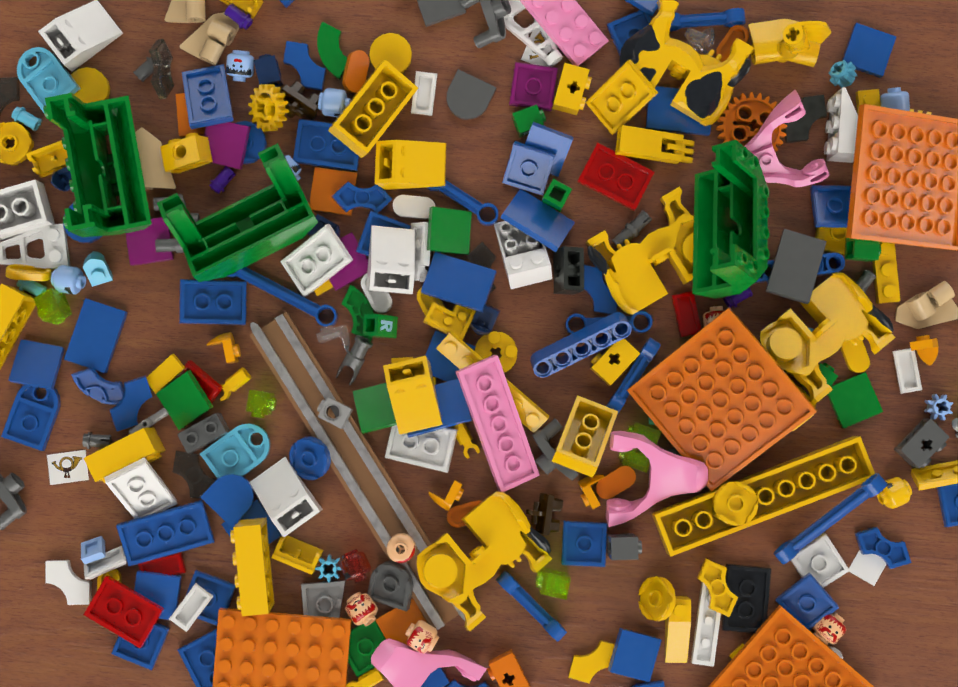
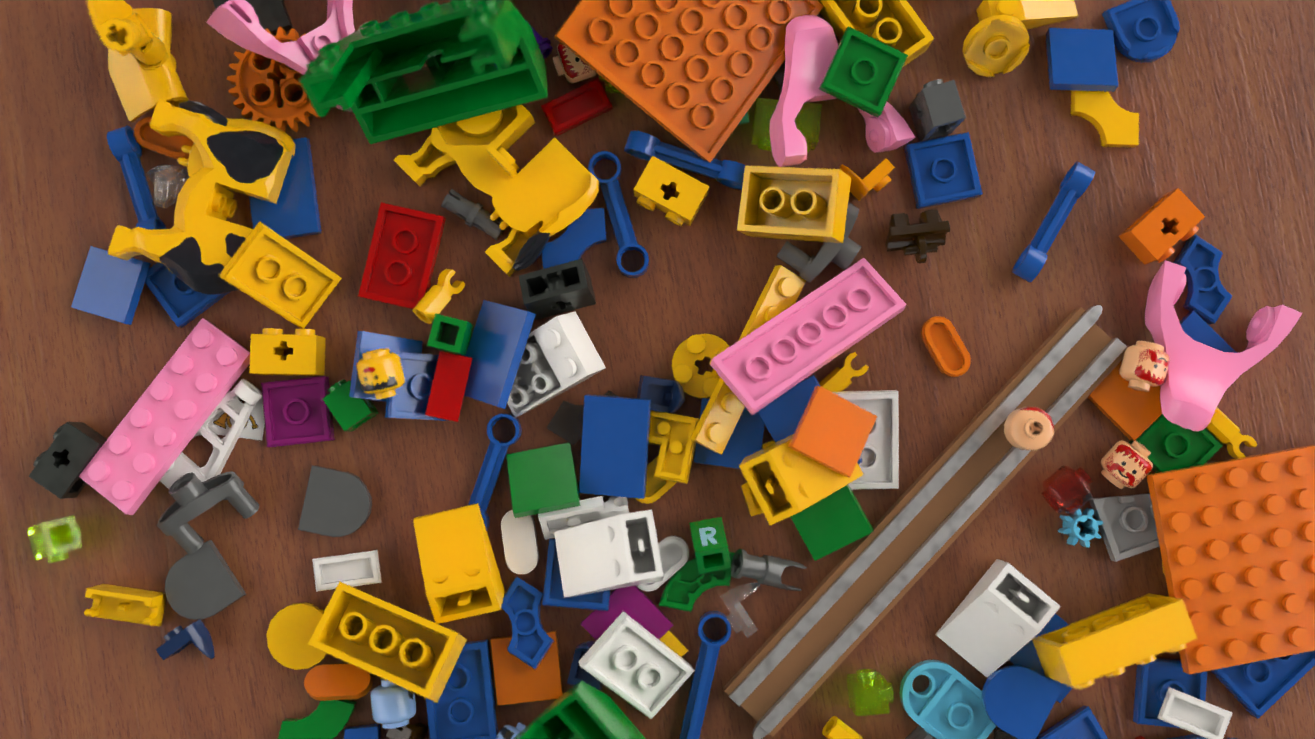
camera: 100 degrees left, 0 degrees up
(297, 554) = (1073, 578): yellow hinge -> none
(310, 458) = (929, 597): blue tile -> none
(344, 412) = (852, 564): light grey brick -> none
(391, 585) = (1082, 429): dark grey tile -> none
(431, 420) = (832, 431): none -> orange tile
(454, 494) = (923, 373): light orange plate -> none
(504, 537) = (968, 283): yellow animal -> none
(524, 186) = (448, 386): none -> red tile
(542, 145) = (380, 373): none -> yellow head
(553, 583) = (1015, 196): clear neon green brick -> none
(583, 193) = (438, 297): none -> yellow bar
(587, 336) = (657, 229): blue beam -> none
(615, 482) = (844, 147): orange tile -> none
(648, 144) = (342, 221): yellow hinge -> none
(659, 503) = (863, 72): none -> green tile

